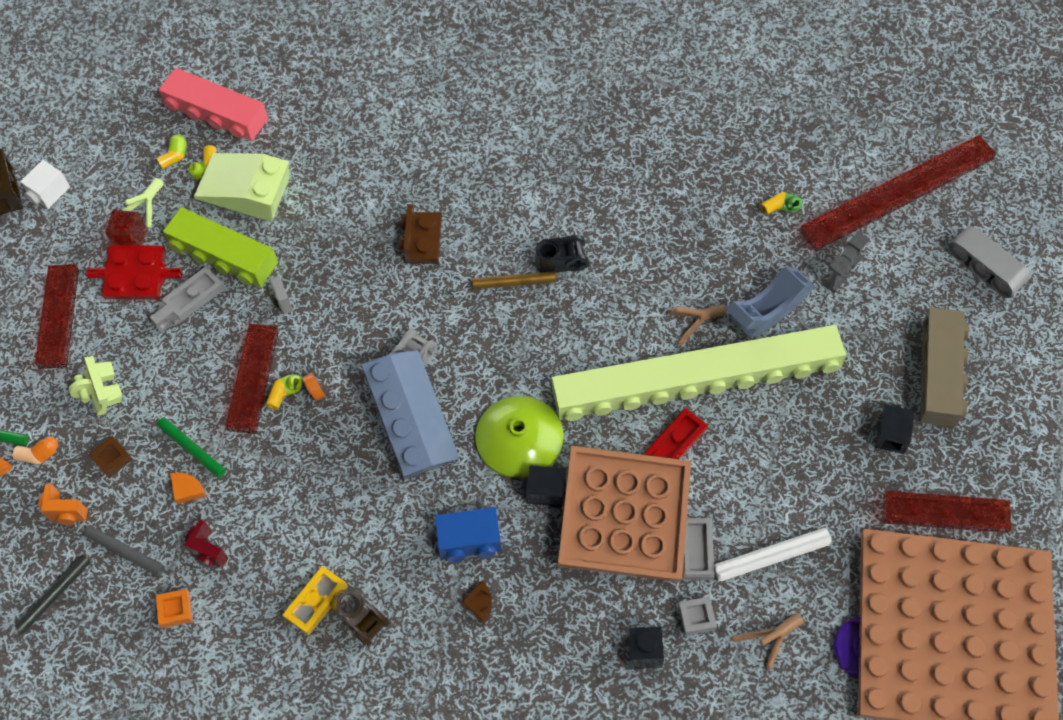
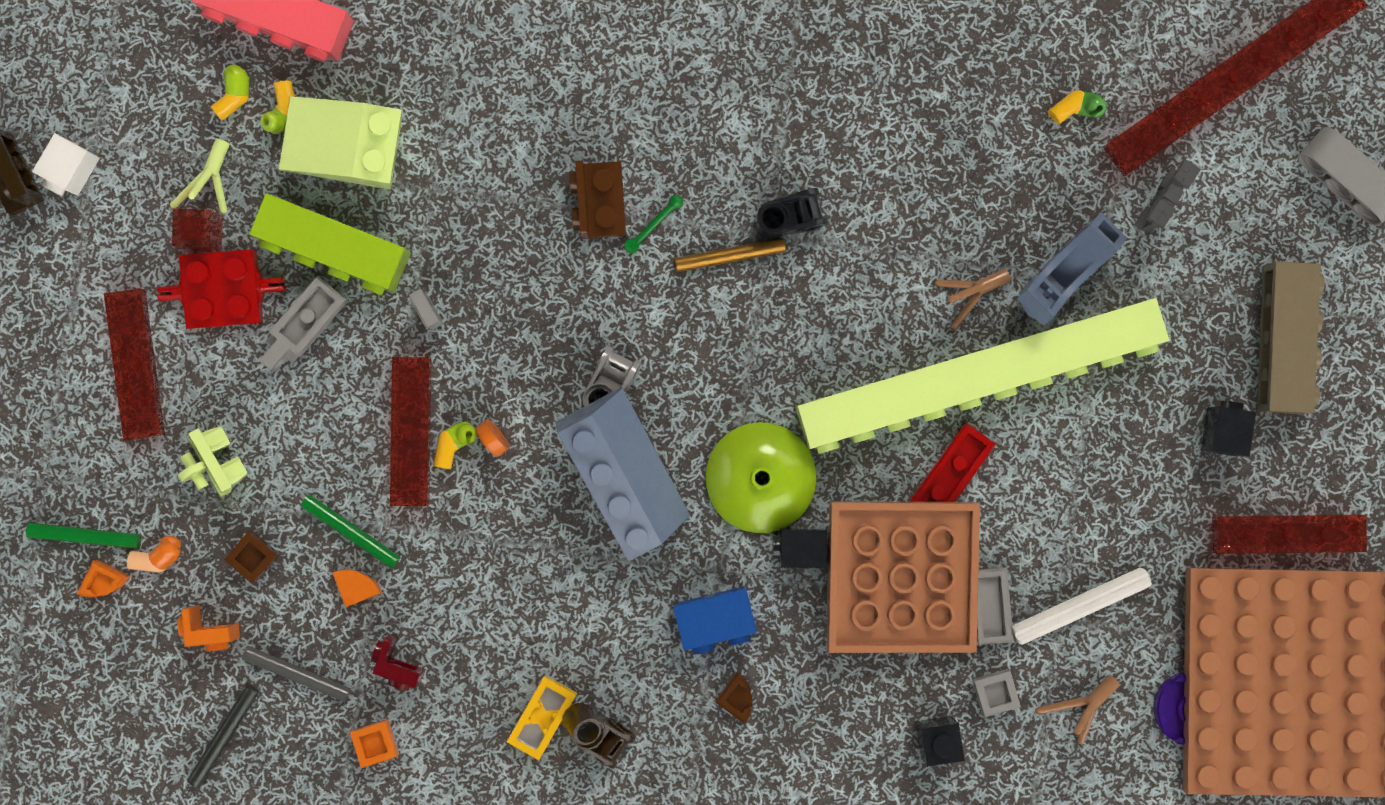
camera: 10 degrees left, 25 degrees up
(442, 268) = (632, 245): none -> green hinge

